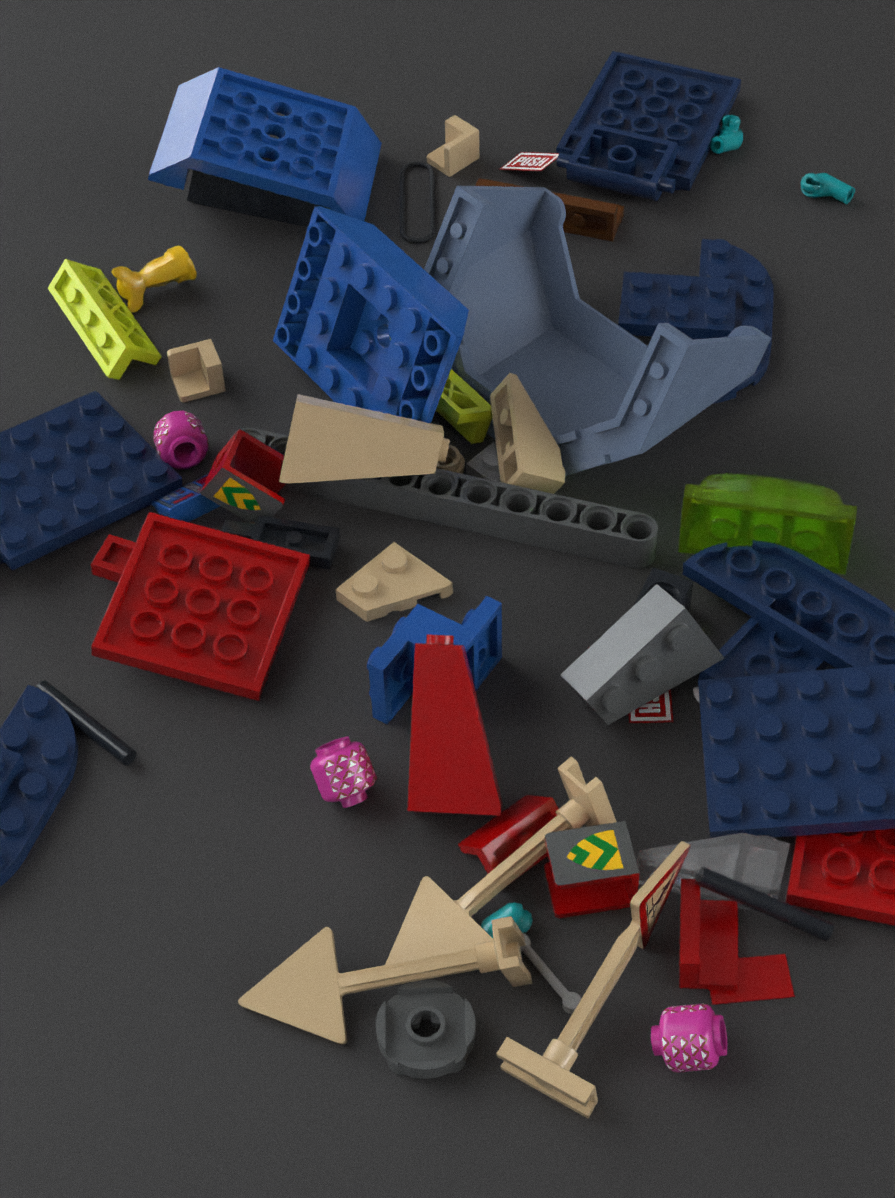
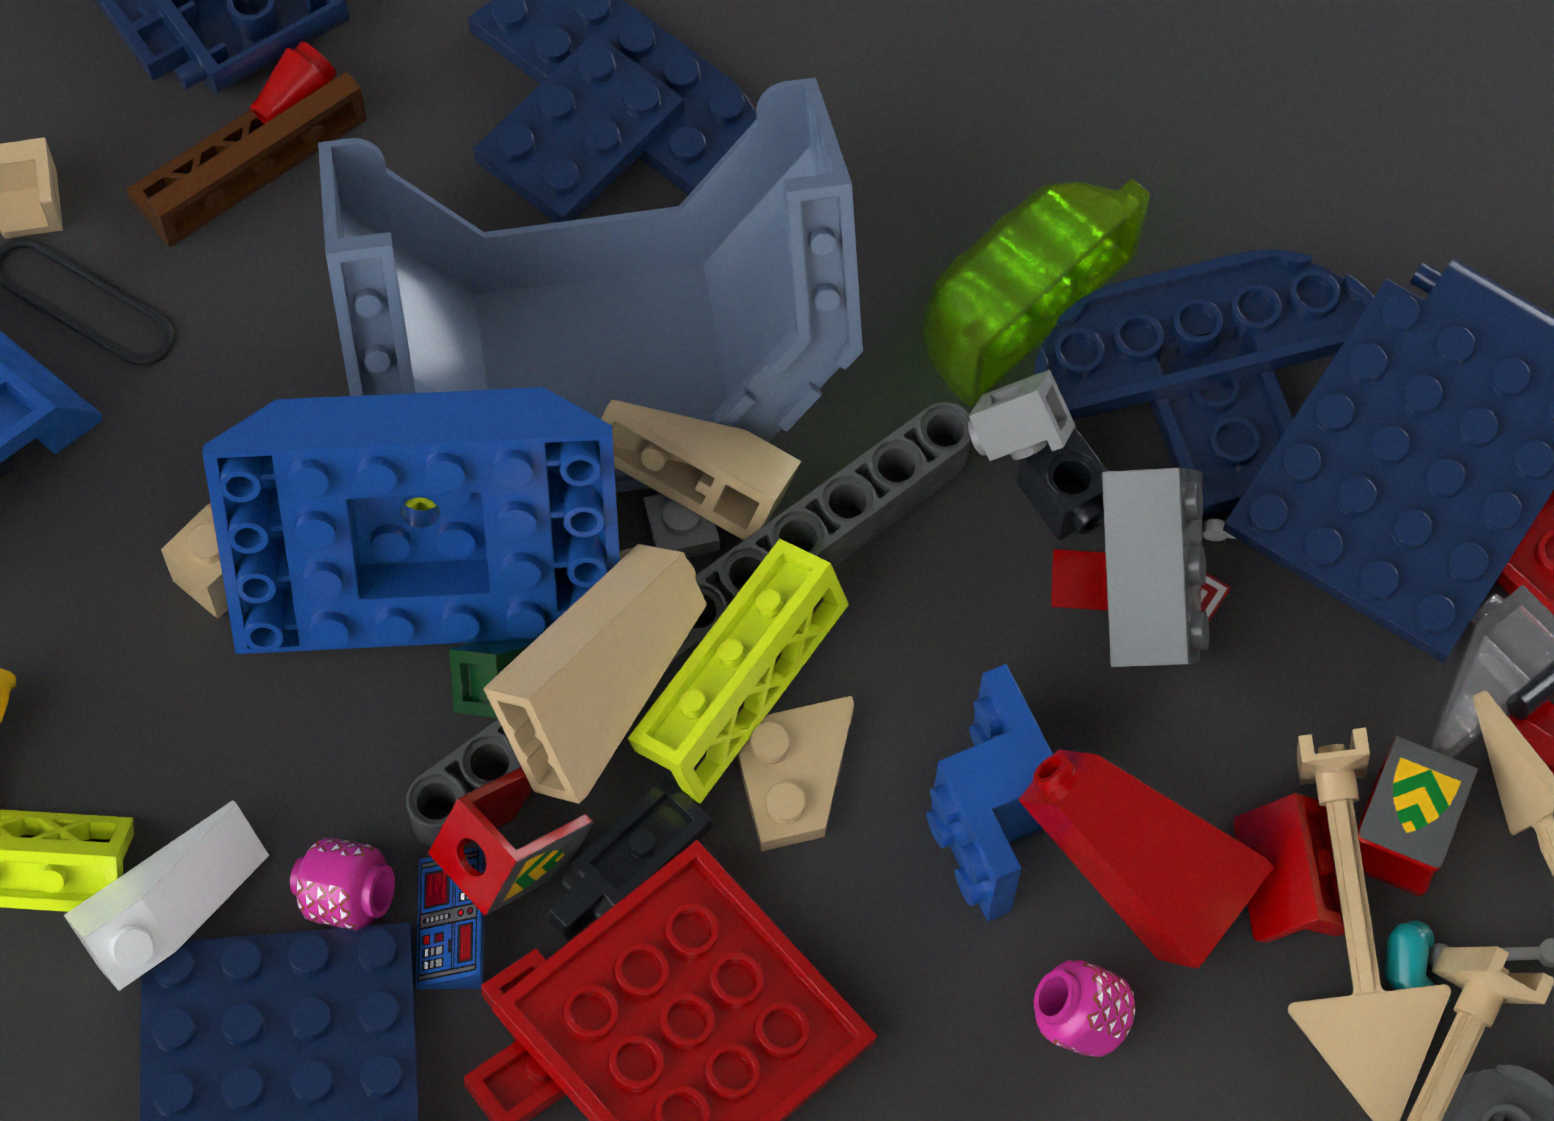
camera: 60 degrees left, 15 degrees up
(125, 380) = (167, 896): none -> white slope
(196, 370) = (211, 777): tan panel -> none
(420, 505) = (738, 665): none -> neon yellow fence
(530, 161) = (139, 113): sticker -> none
(598, 190) = (292, 80): none -> red cone
(669, 548) = (1021, 419): none -> light grey brick

